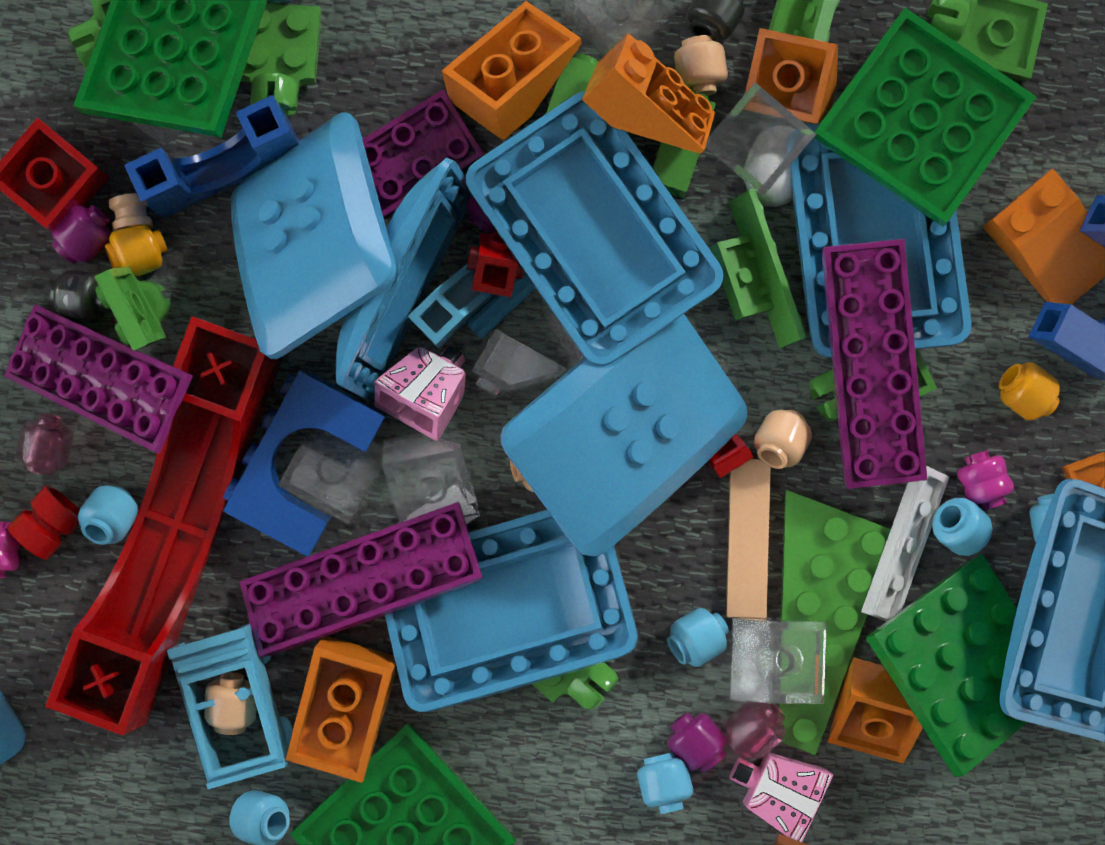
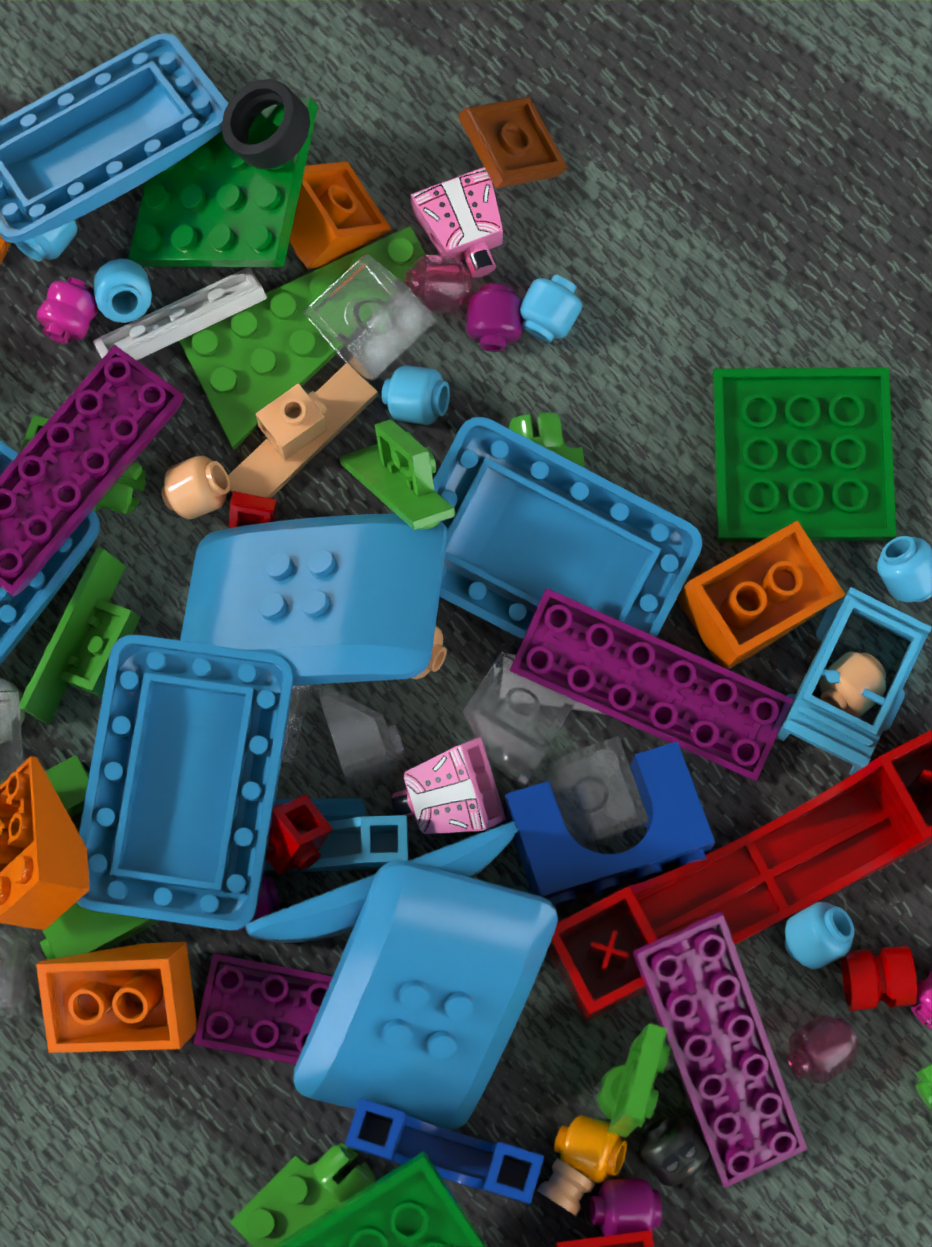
camera: 140 degrees left, 10 degrees down
(646, 561) = (400, 476): none -> bright green bracket
(760, 541) = (293, 420): none -> light nougat brick
(998, 717) = (247, 106): none -> black tyre

